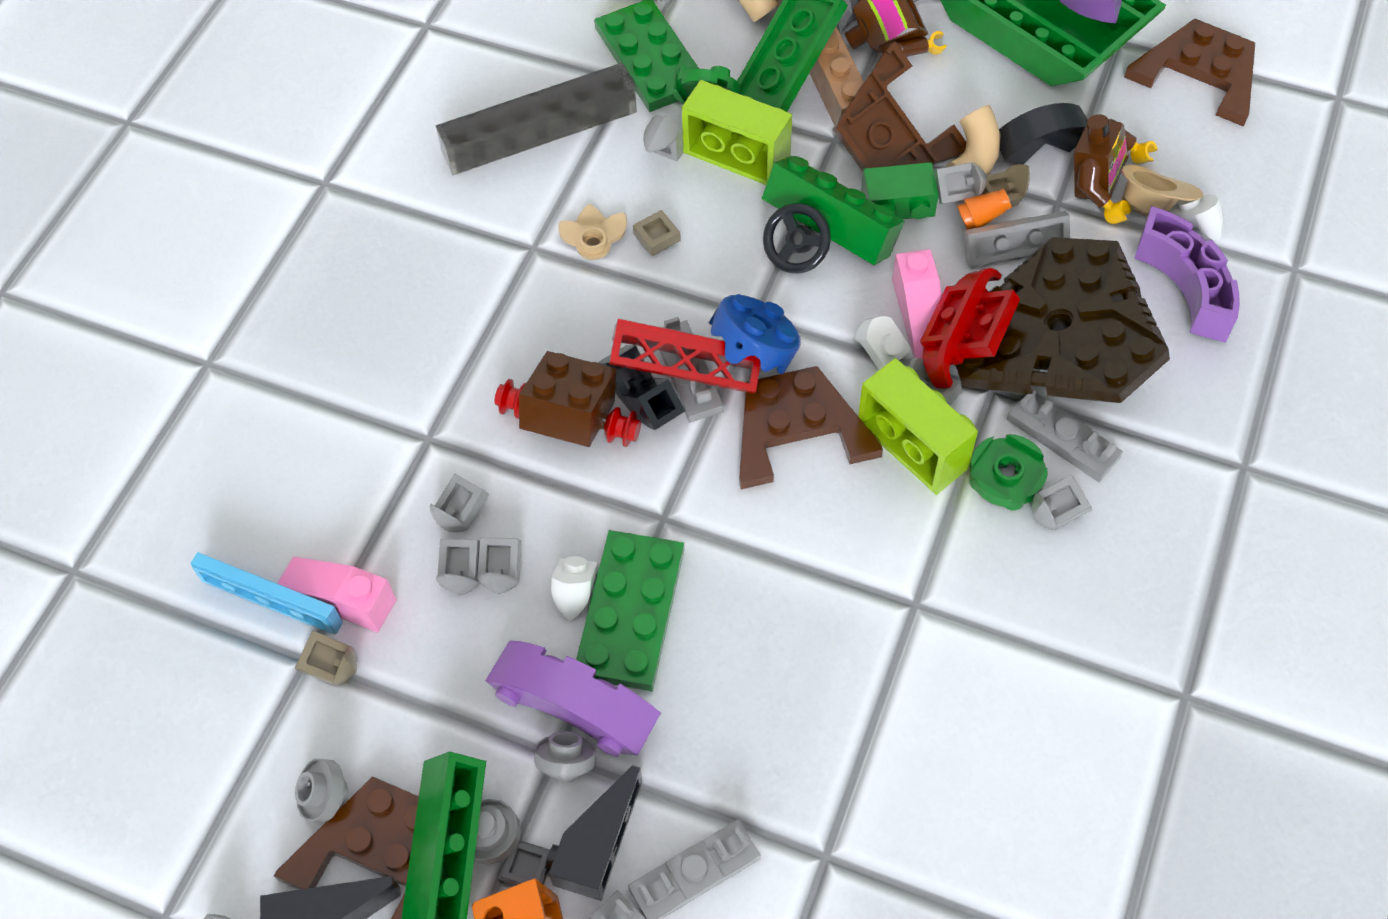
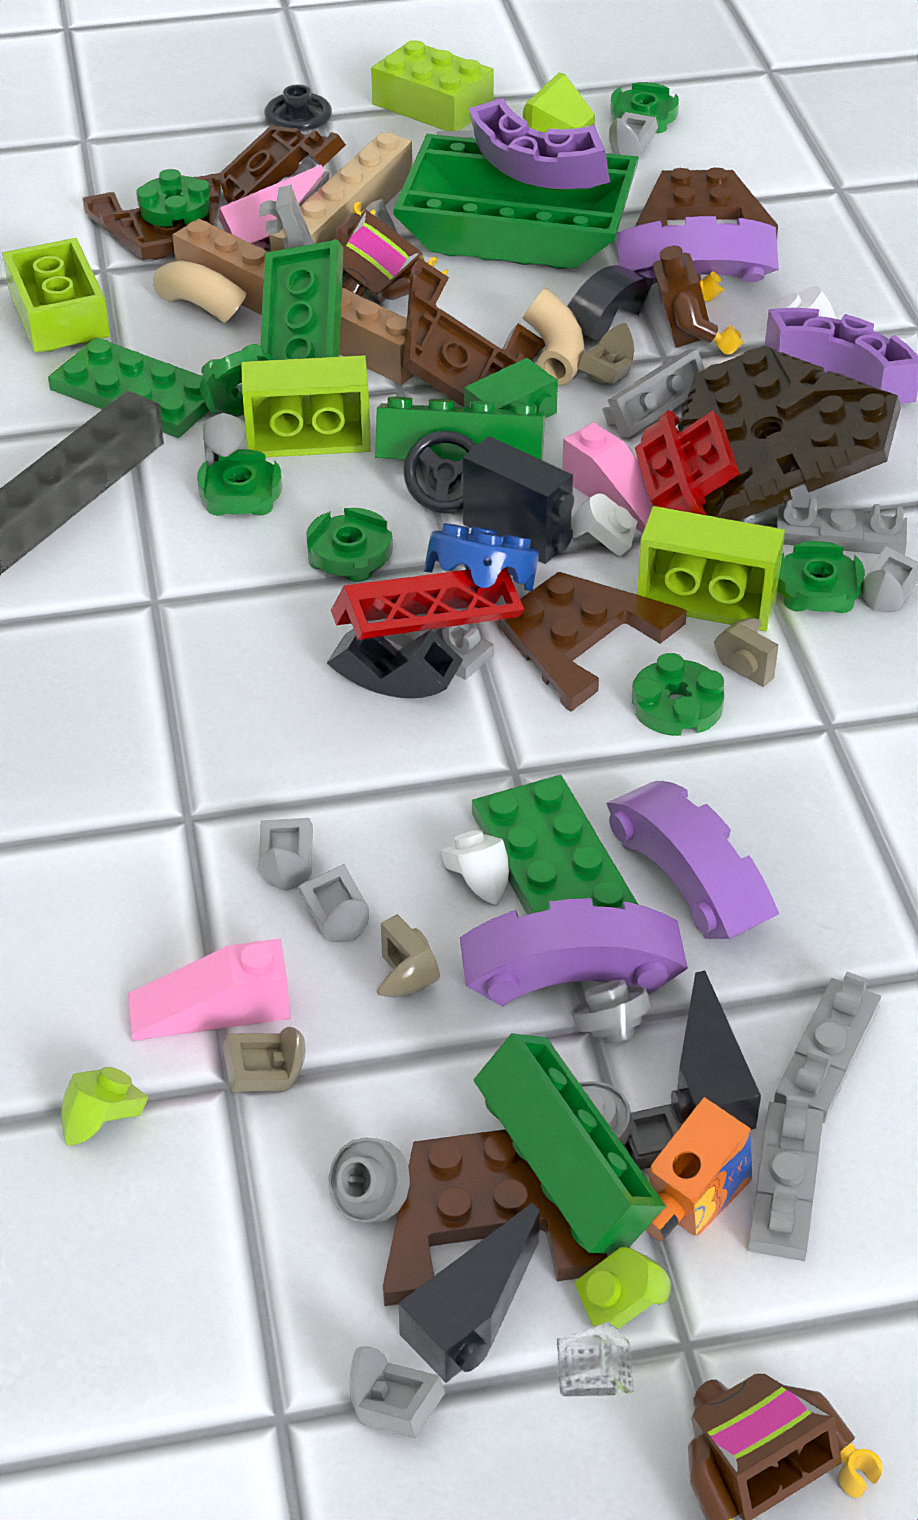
camera: 35 degrees left, 15 degrees down
(216, 629) = (98, 1098): none -> lime plate
(266, 593) = (129, 1035): medium azure tile -> none
(474, 629) = (410, 958): none -> dark tan plate
(499, 563) = (381, 882): light grey plate -> none
(569, 402) = (331, 702): reddish brown brick -> none
(593, 229) = (217, 562): tan plate -> none
(656, 233) = (285, 529): dark tan plate -> none
(657, 190) = (225, 496): none -> green plate
(690, 282) = (330, 546): none -> green plate
(710, 655) = (693, 850): none -> medium lavender brick
(813, 537) = (671, 676): none -> green plate
(823, 291) = (518, 496): none -> black brick
(894, 511) = (747, 651): none -> dark tan plate
(960, 182) = (573, 359): light grey plate -> none
(984, 208) = (609, 376): orange cone -> none
(1150, 189) = (750, 312): tan piece -> none
(1154, 117) = (722, 248): none -> medium lavender brick

